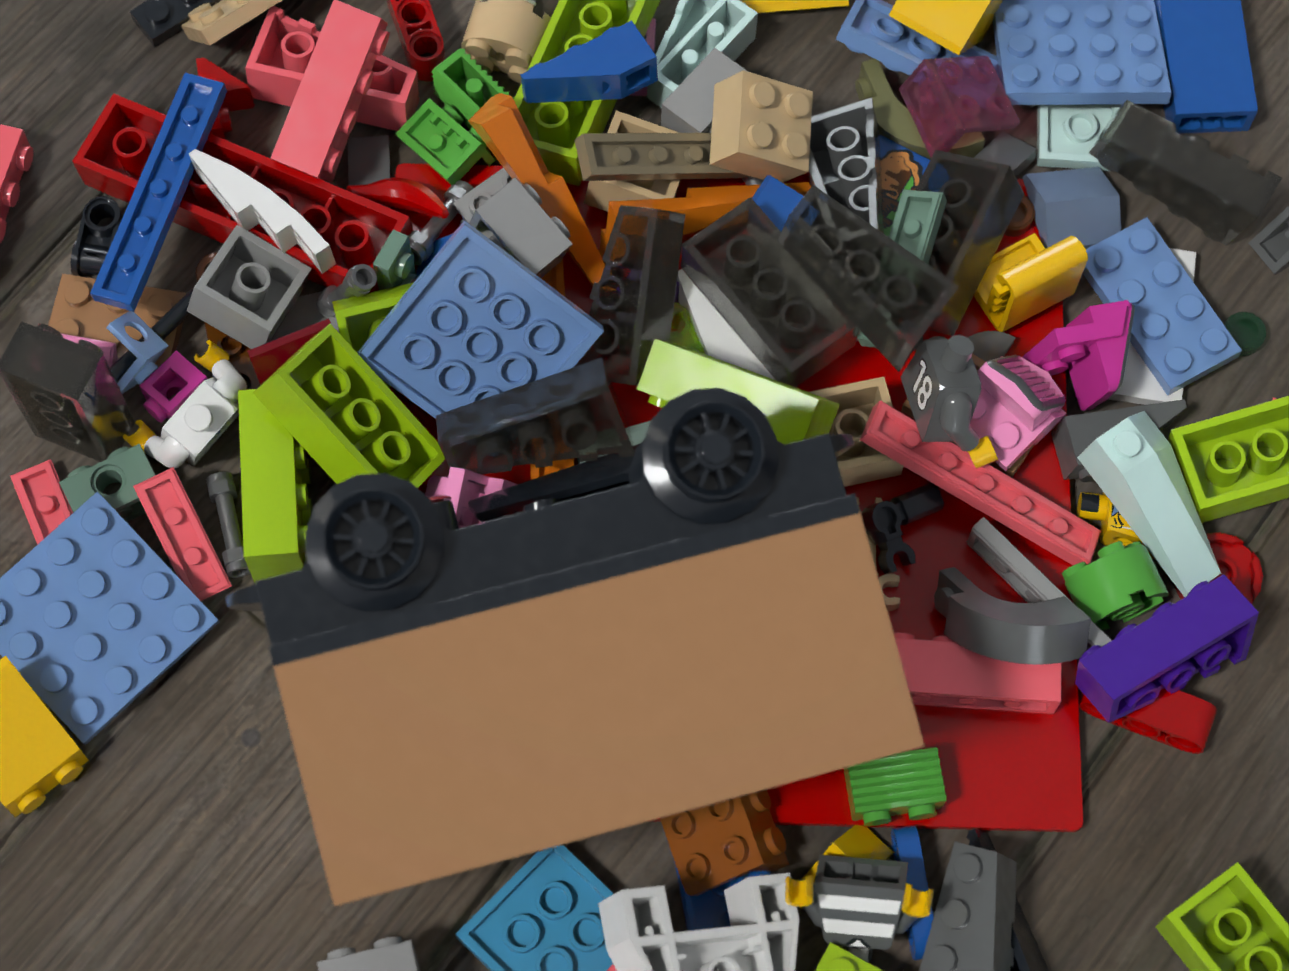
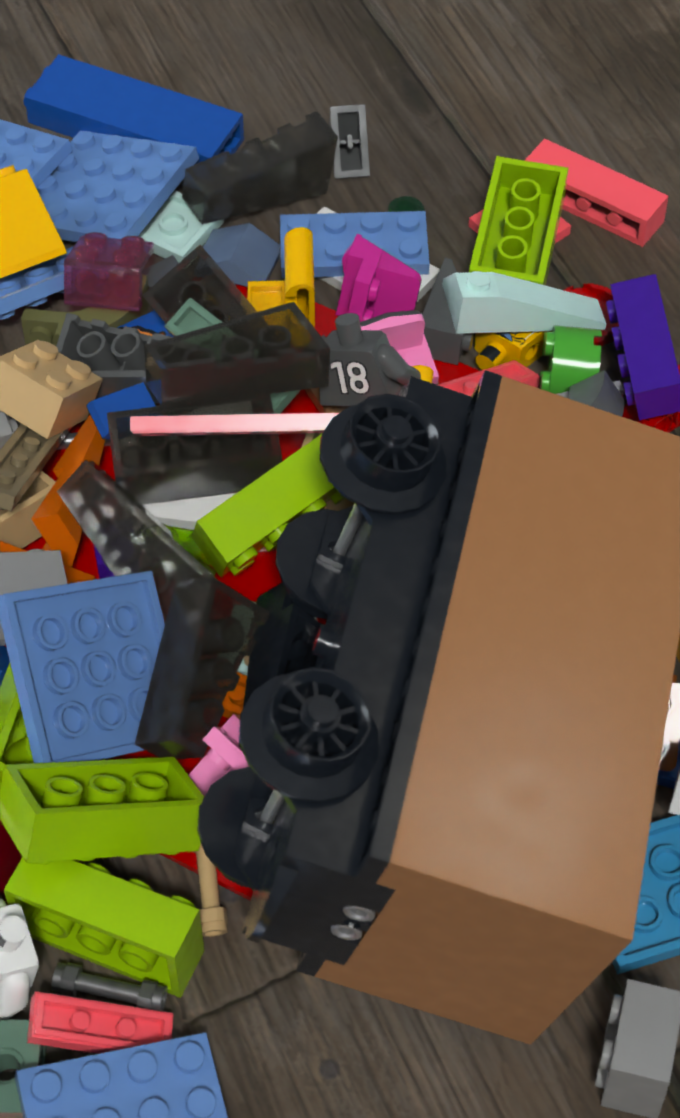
camera: 60 degrees left, 15 degrees down
(802, 333) = (230, 424): none -> tile

